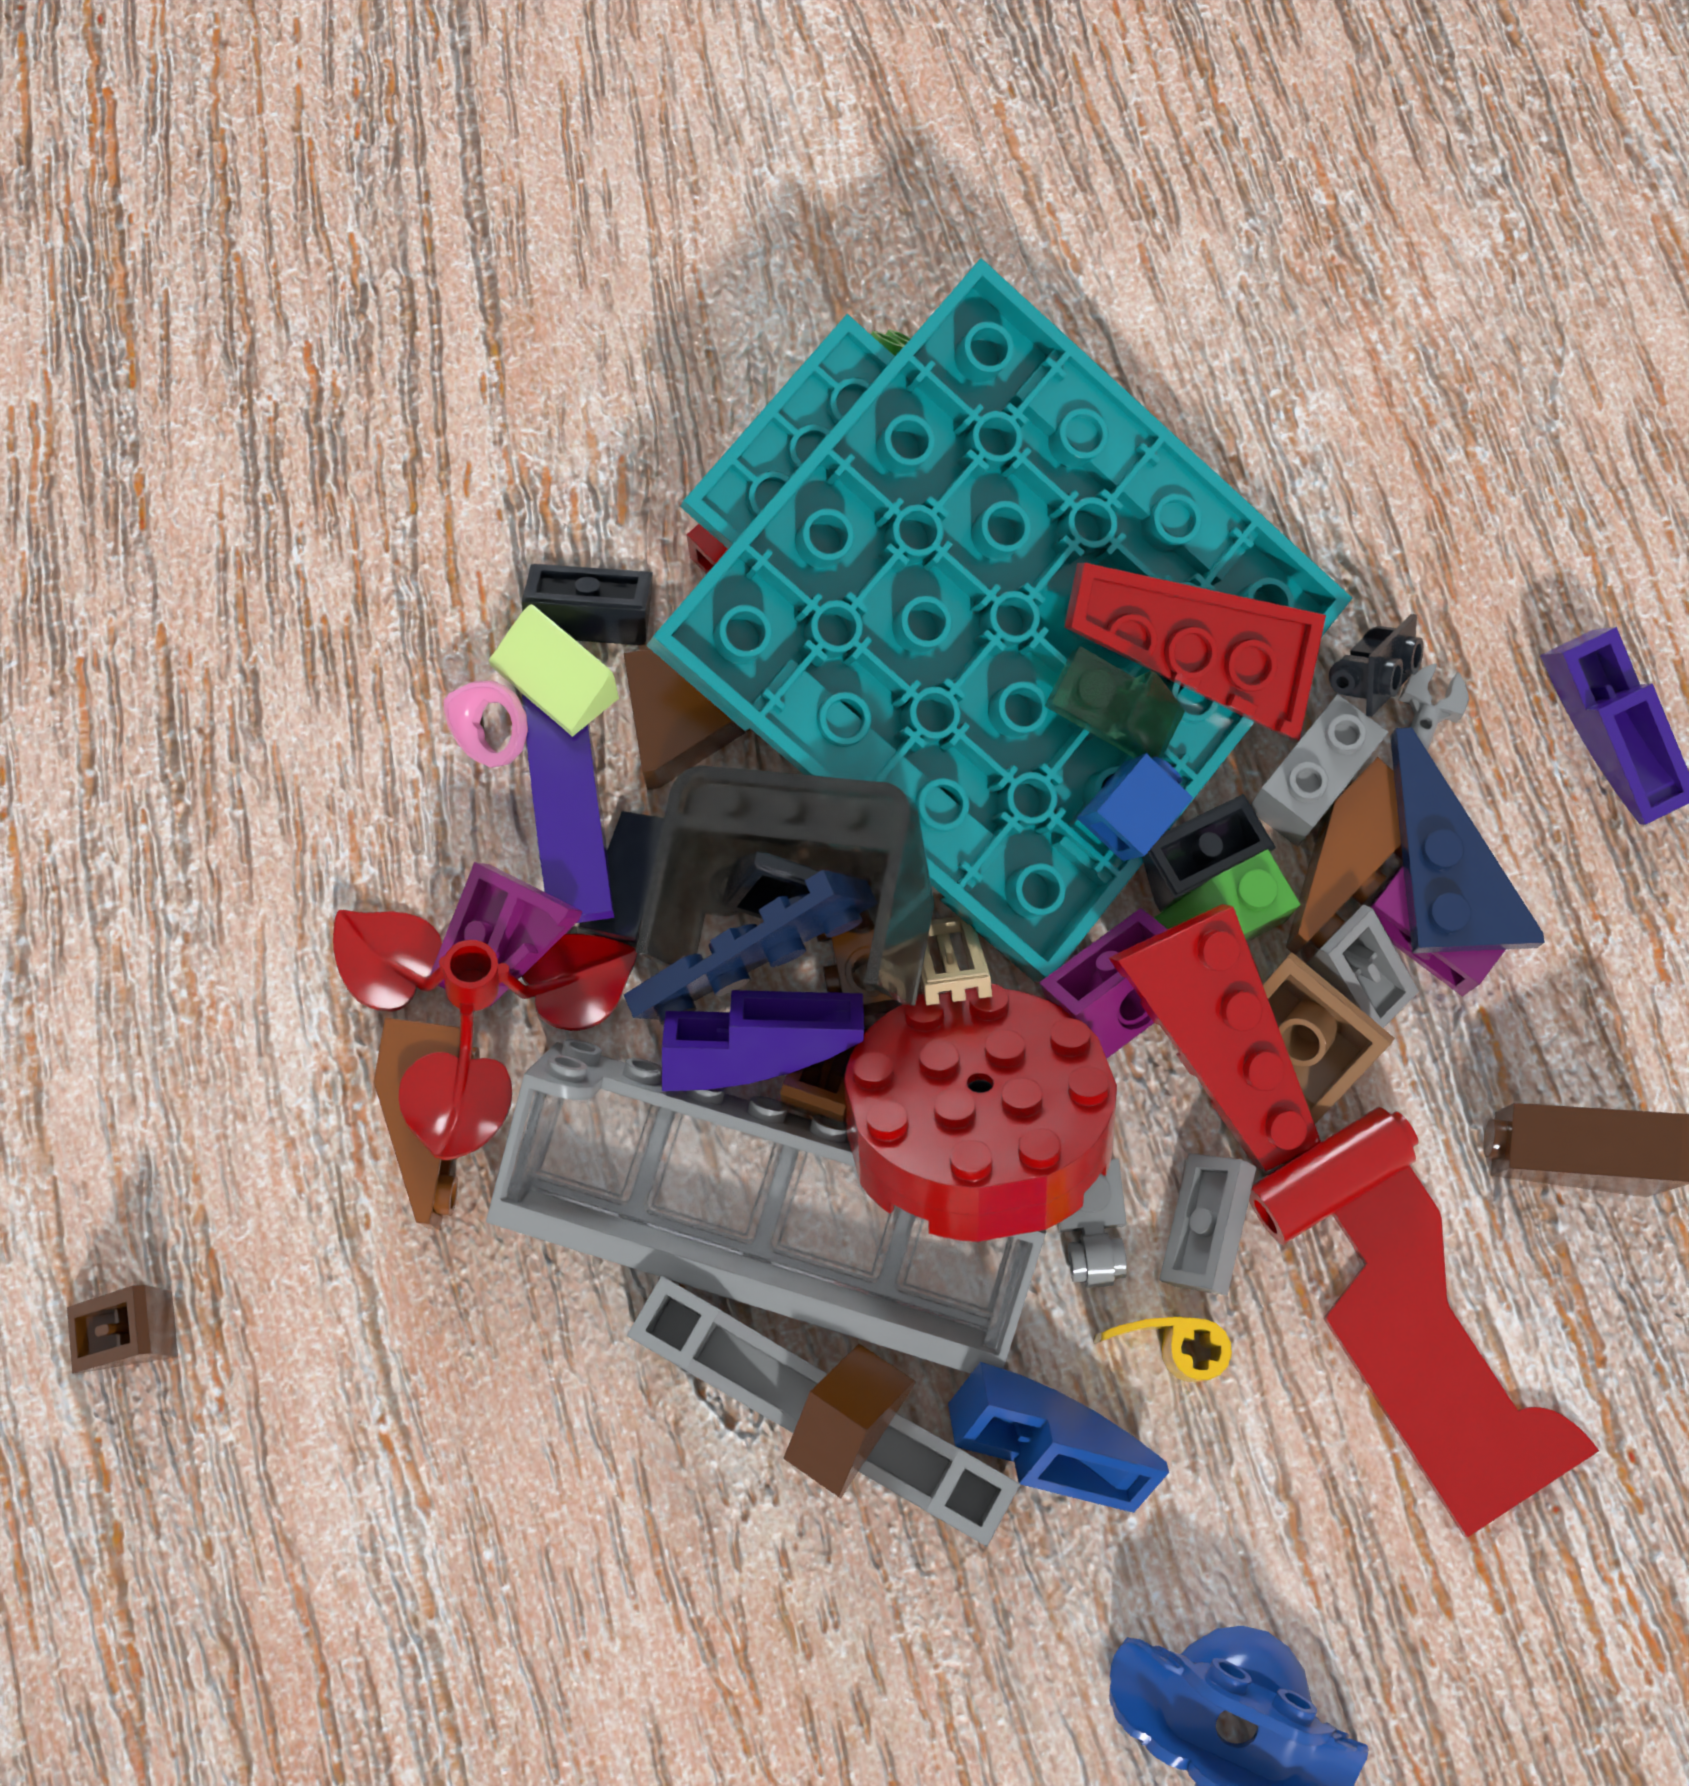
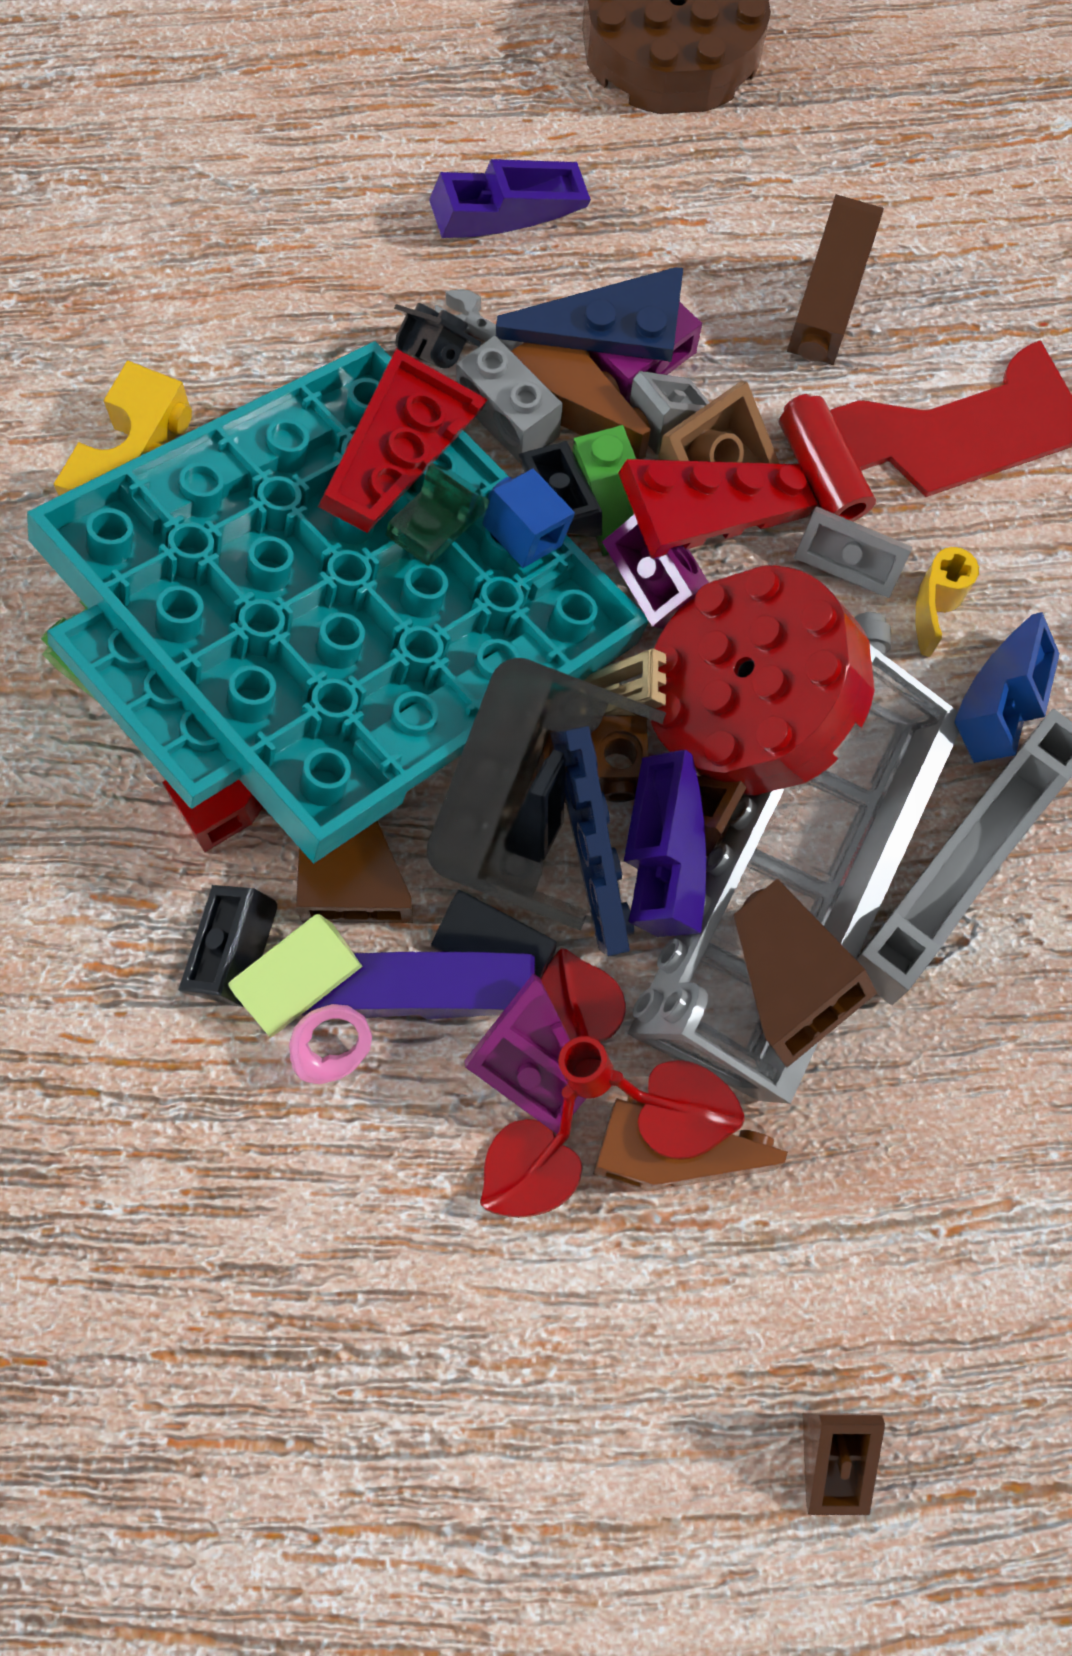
camera: 85 degrees left, 5 degrees down
(629, 1200) = (797, 972): none -> reddish brown slope
(846, 1418) = (986, 832): reddish brown slope -> none
(1196, 381) = (140, 404): none -> yellow arch

